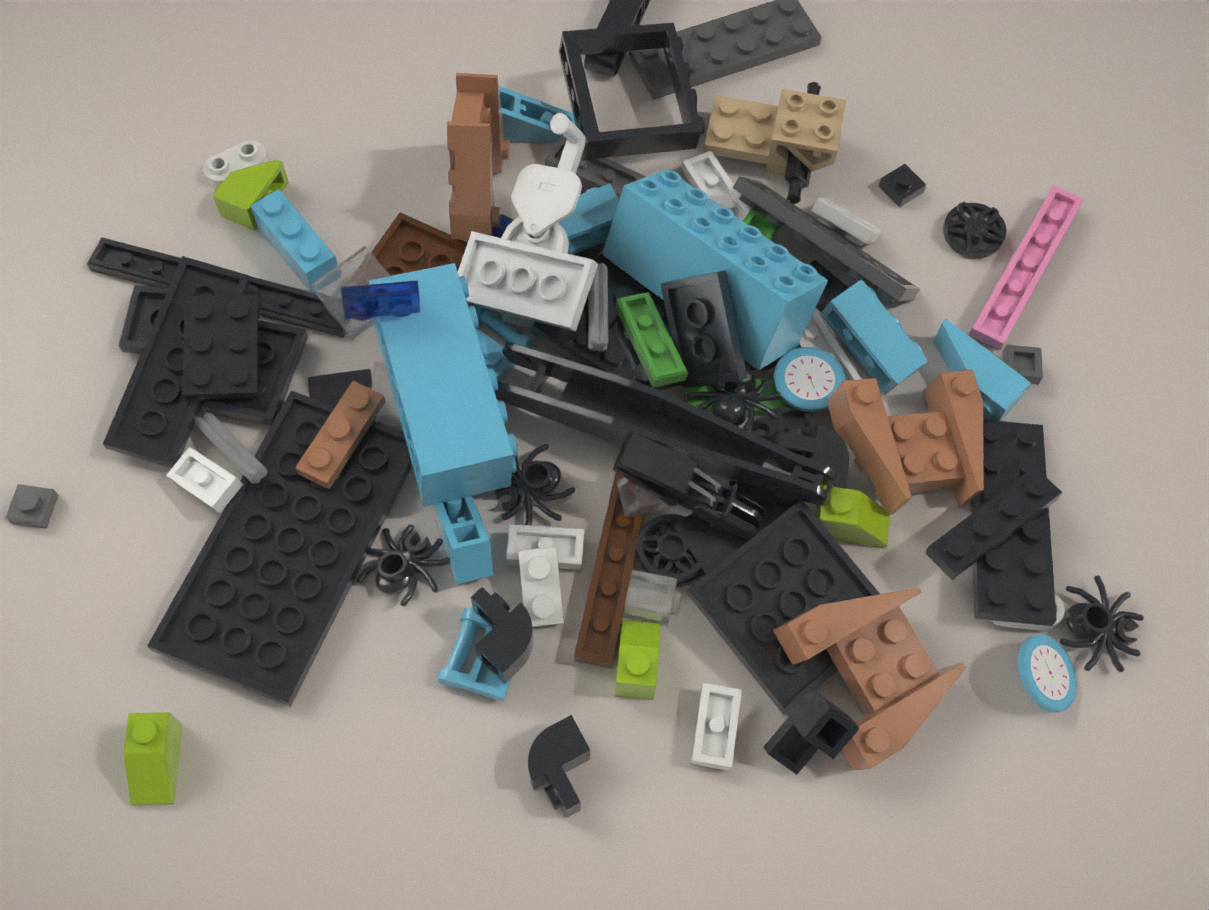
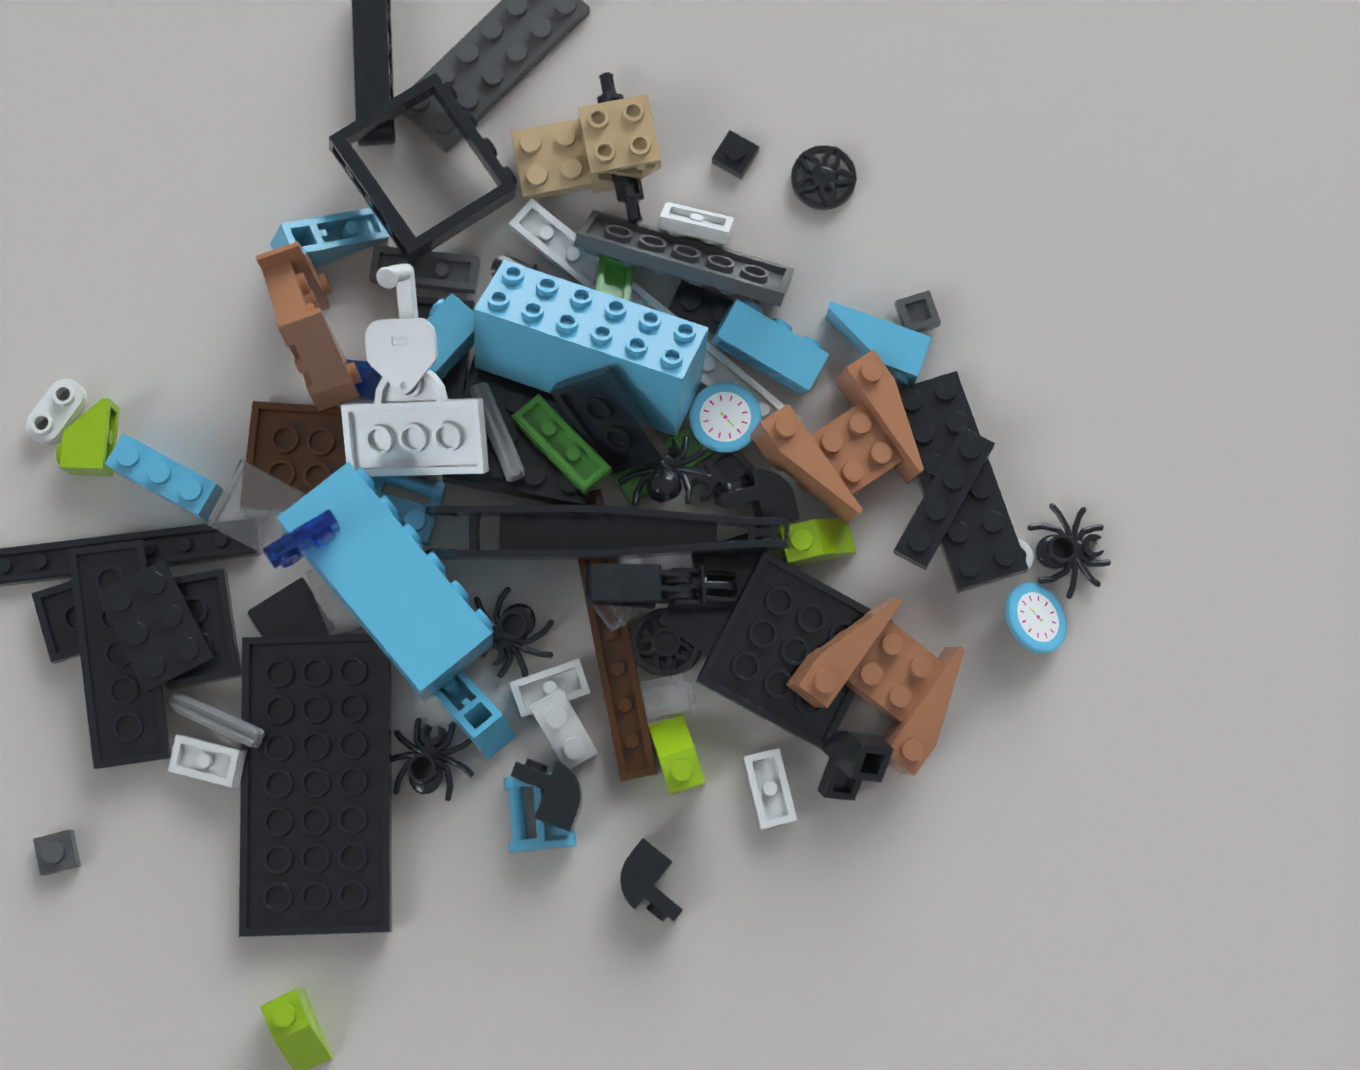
camera: 20 degrees left, 15 degrees up
(340, 435) = (313, 663): nougat plate -> none
(1026, 268) = (887, 201): bright pink plate -> none

